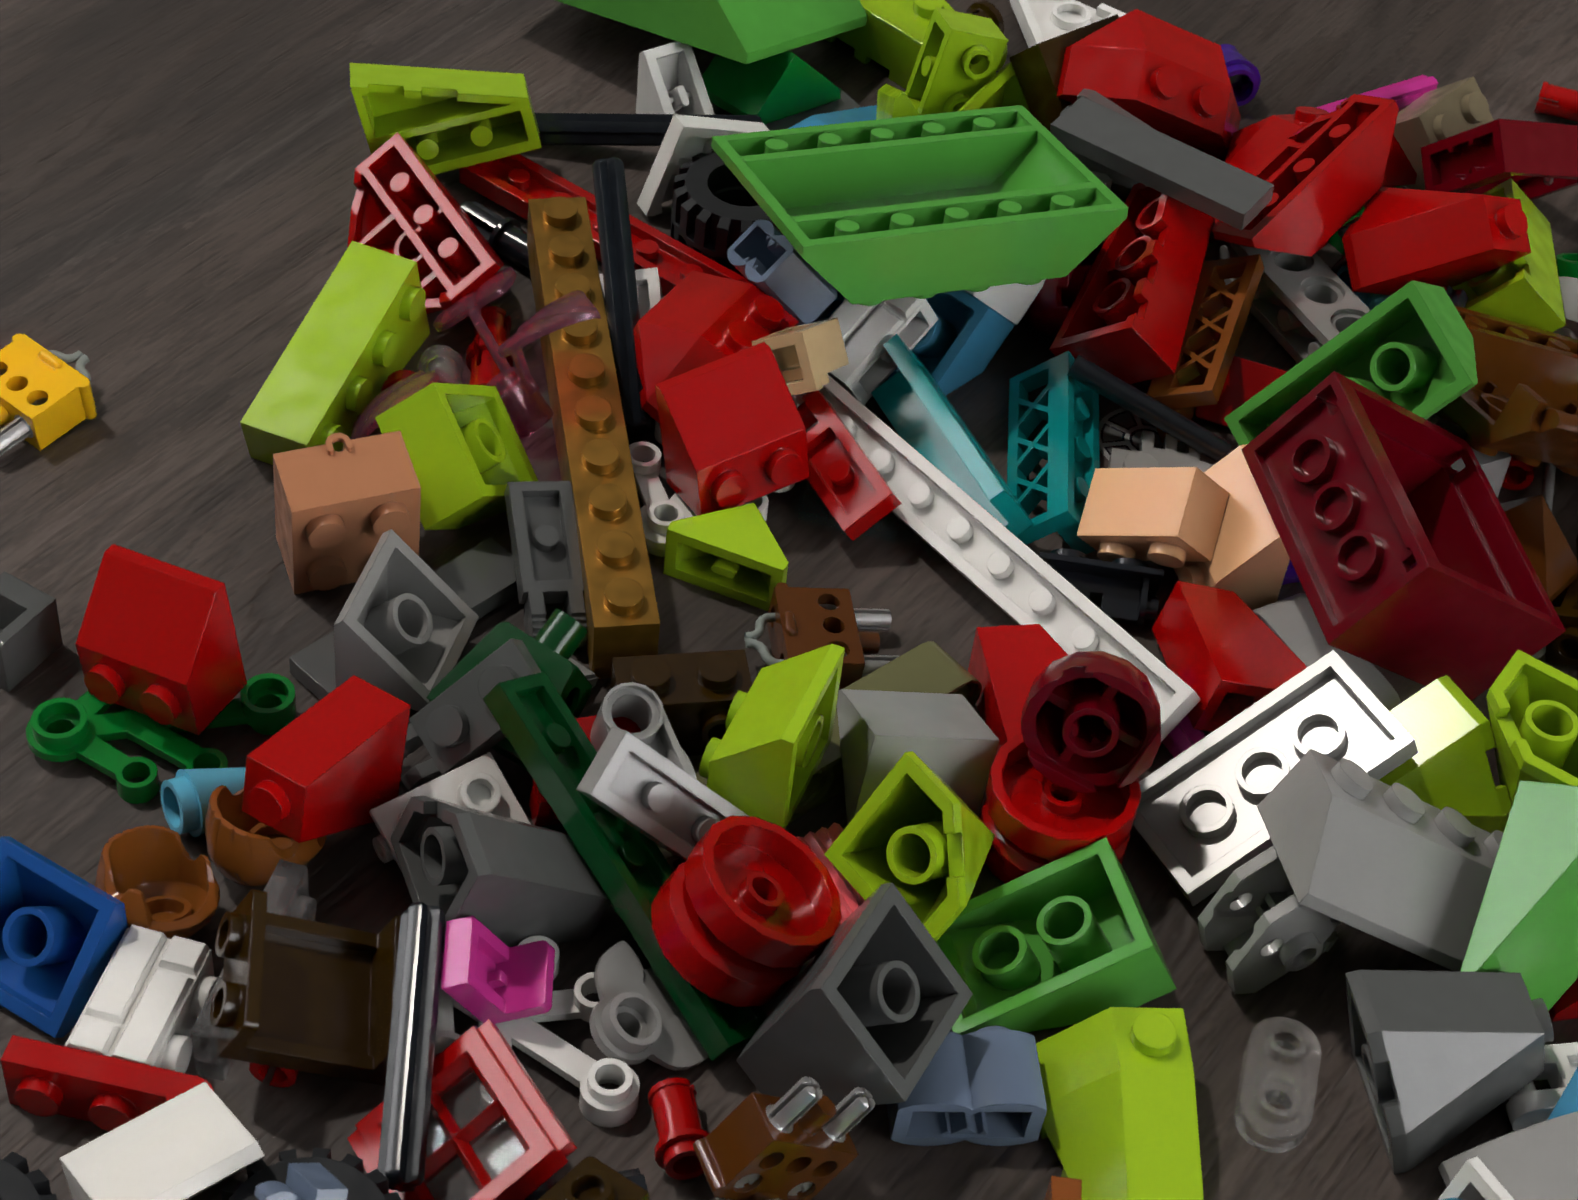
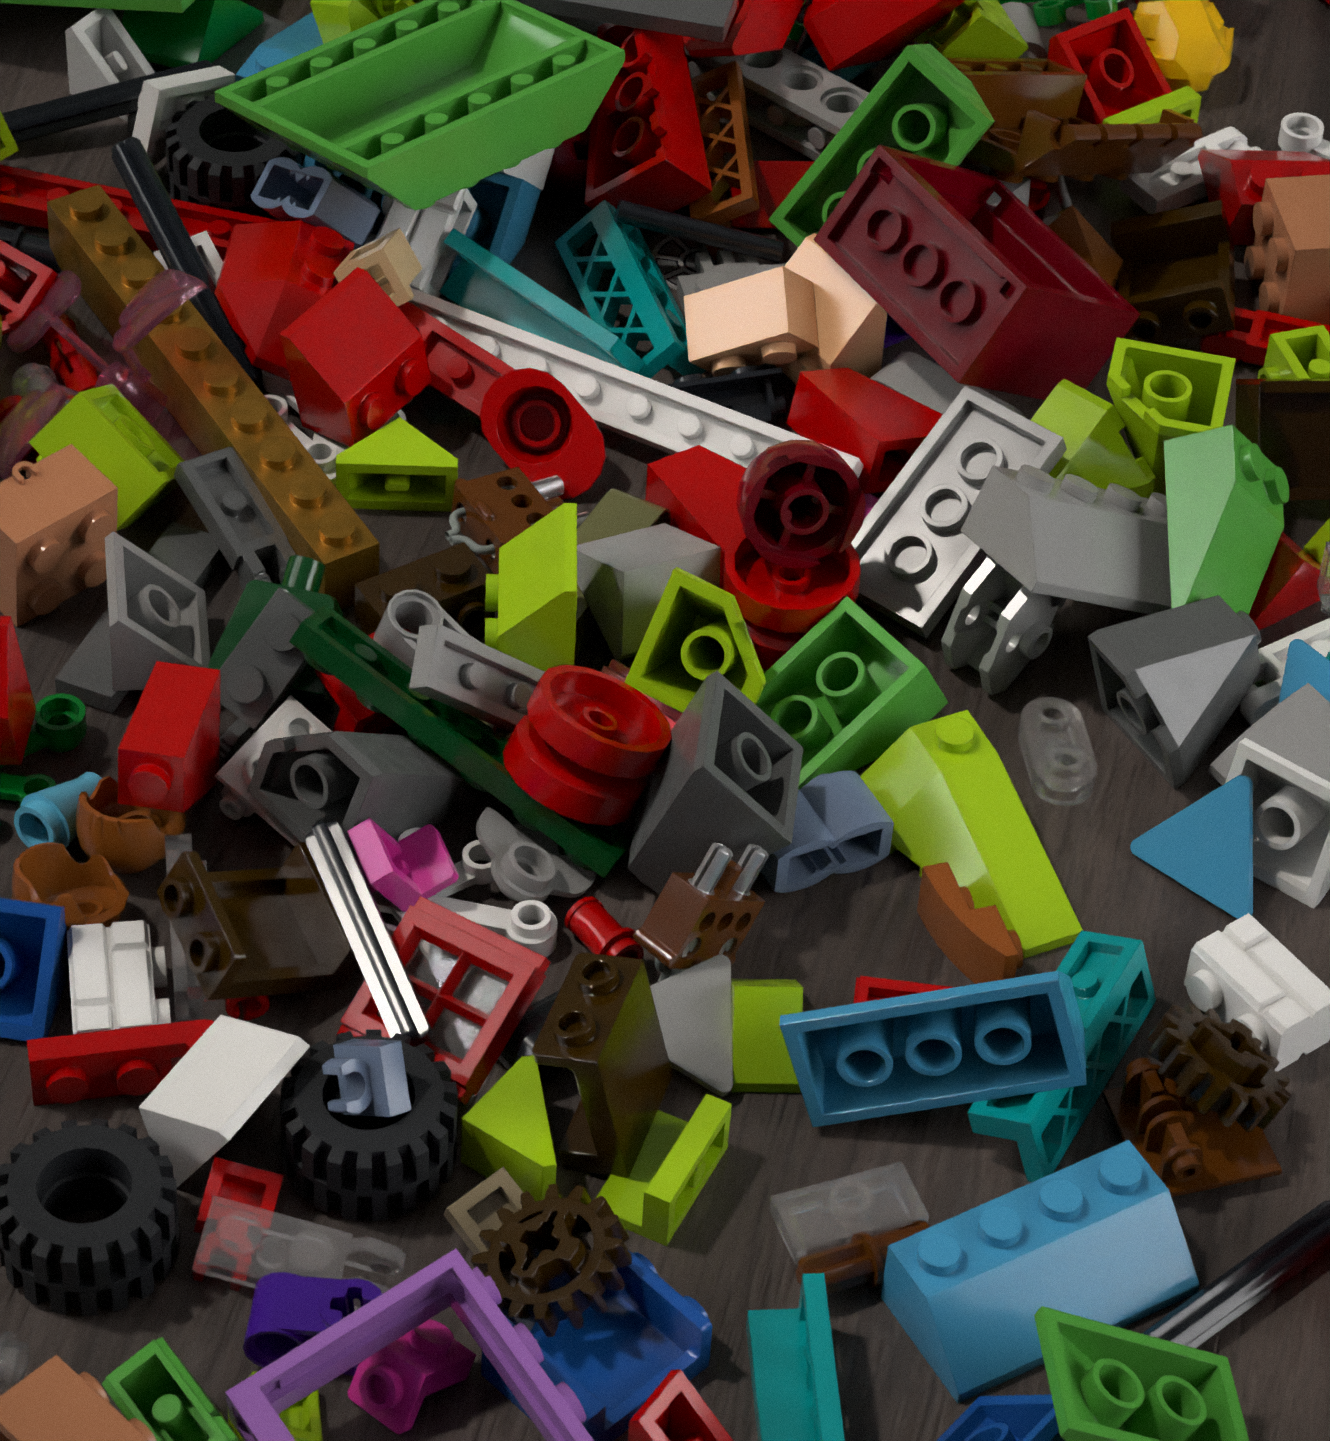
camera: 20 degrees left, 0 degrees up
(892, 560) = (543, 430): none -> red piece

